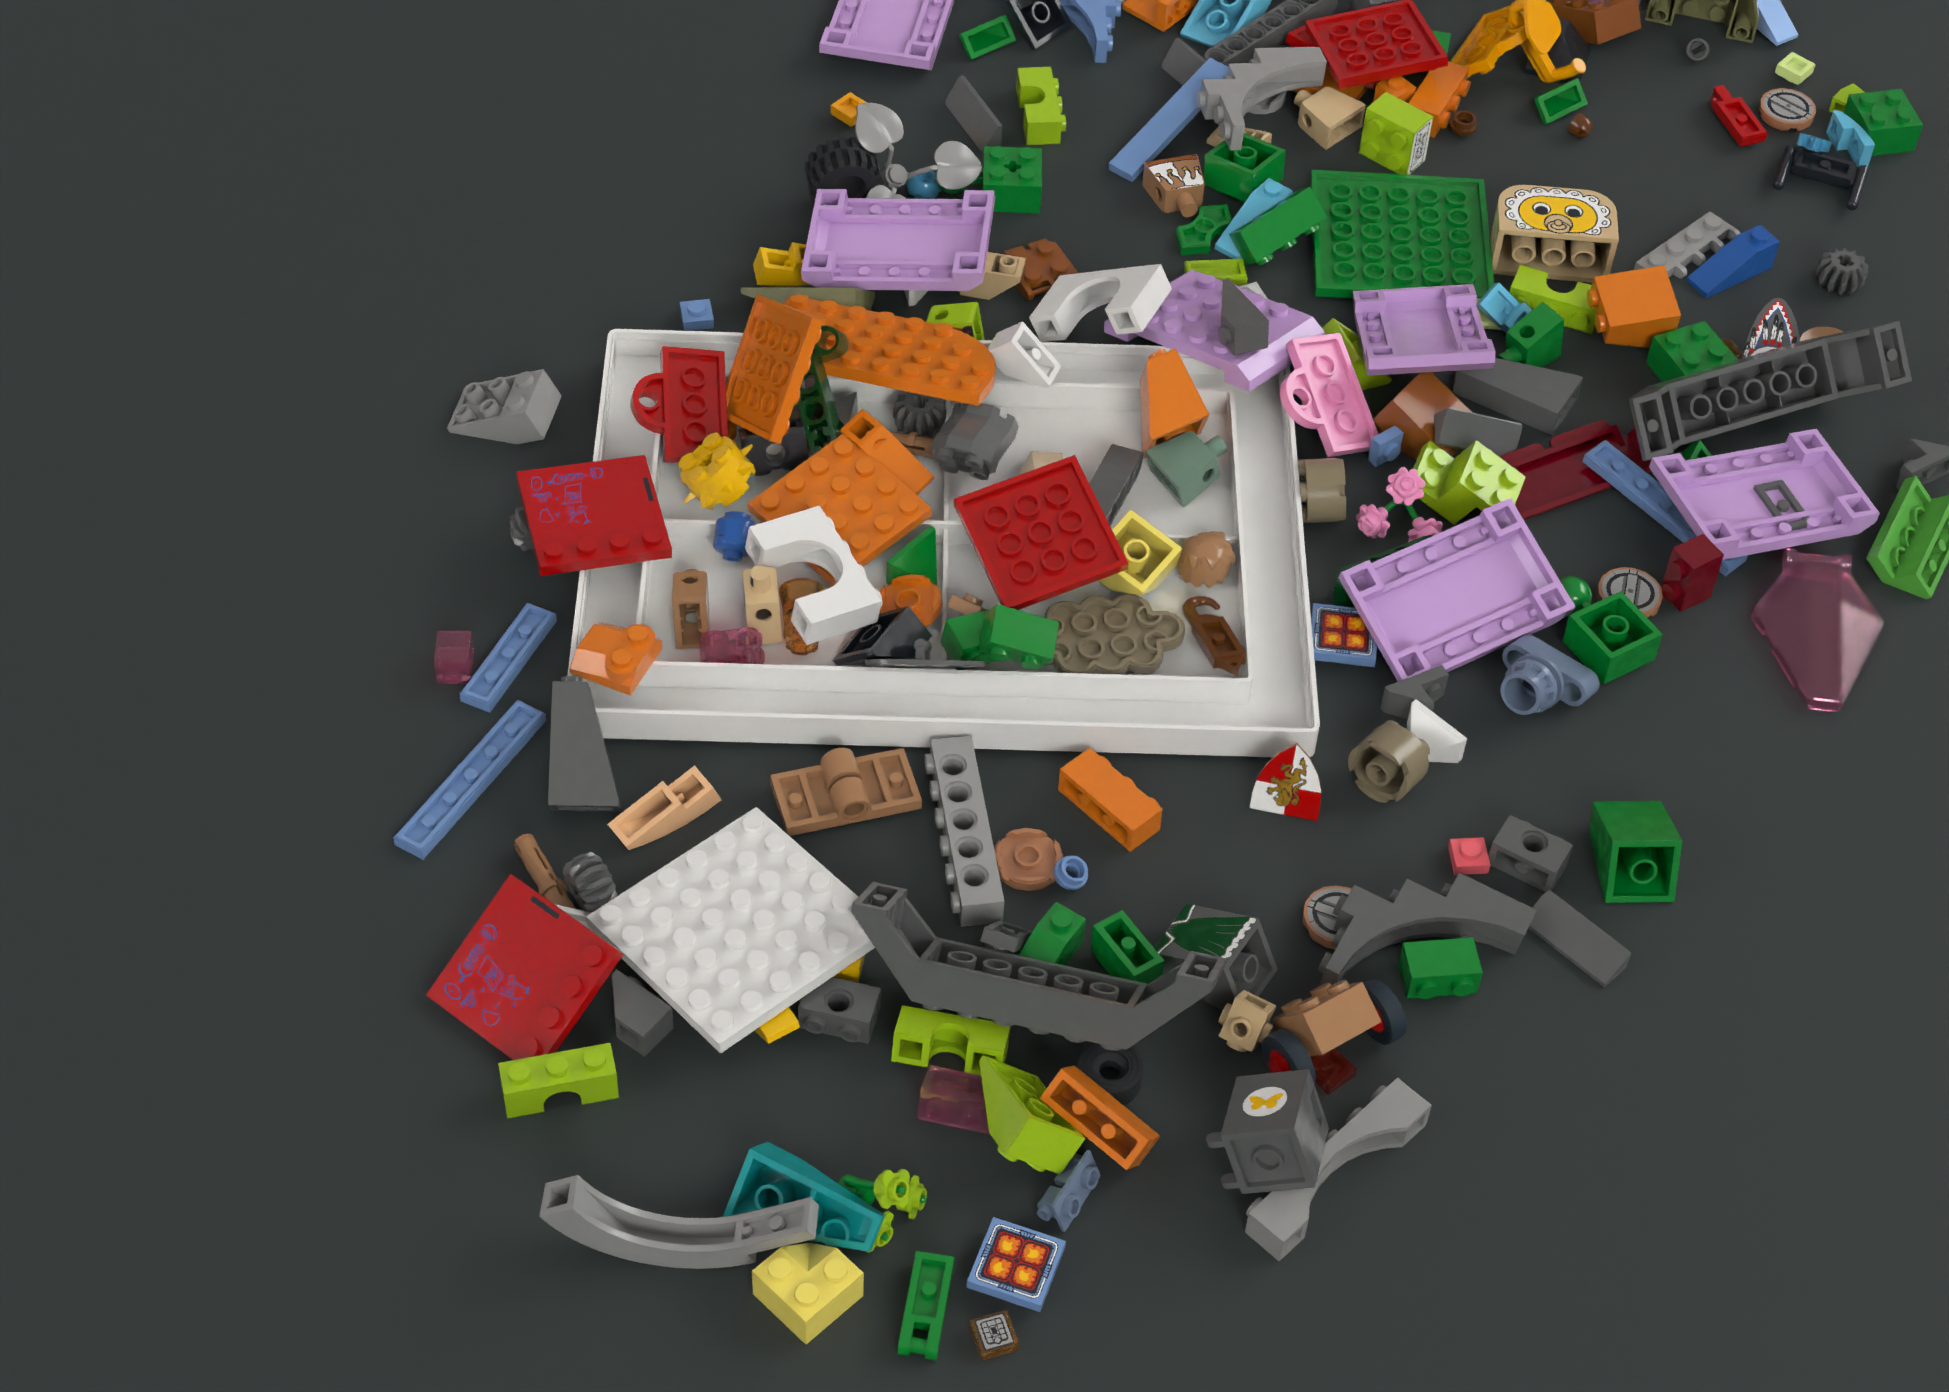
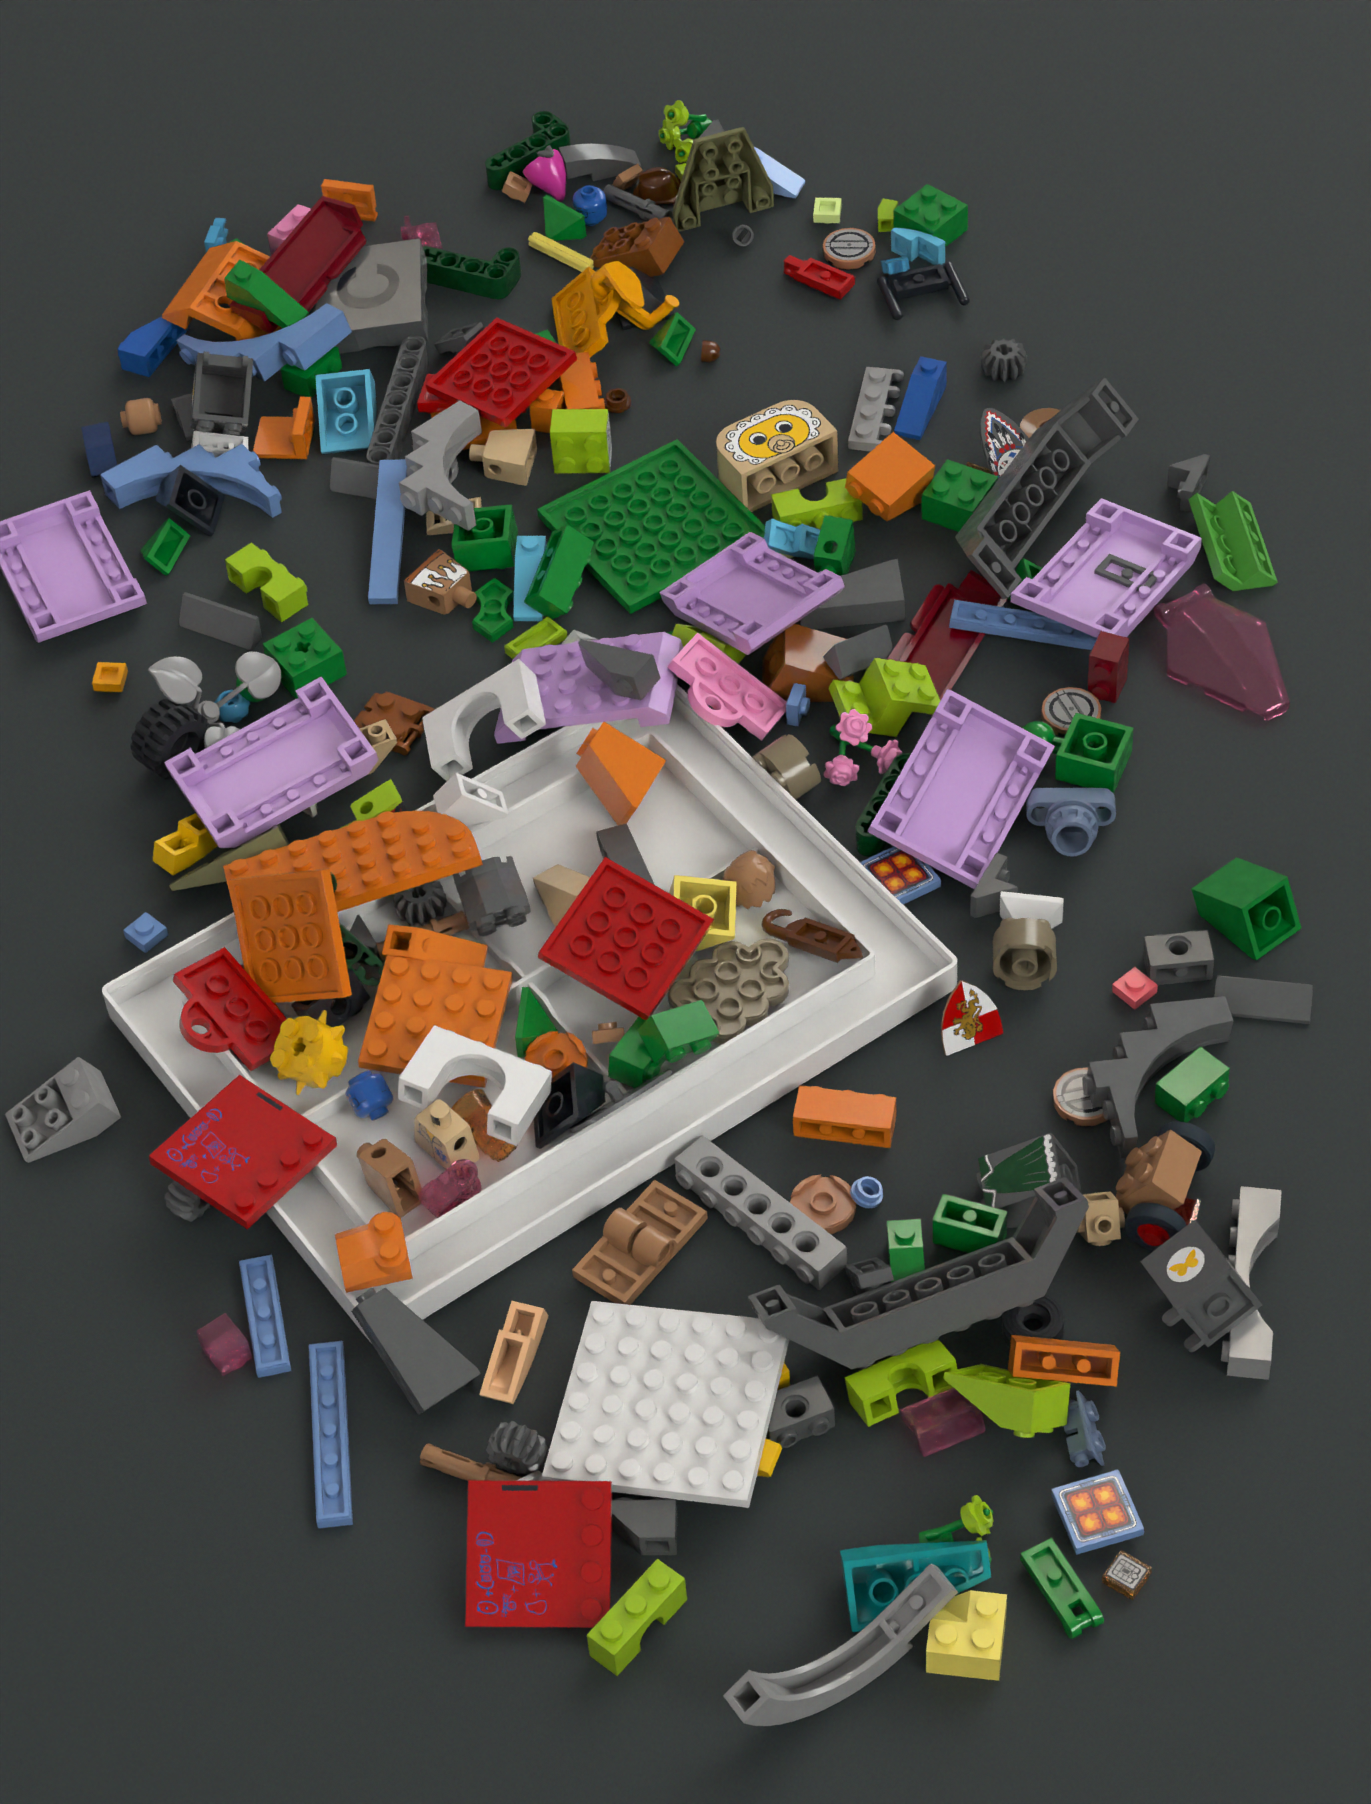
camera: 30 degrees left, 0 degrees up
(1186, 464) = (667, 813): sand green torso -> none

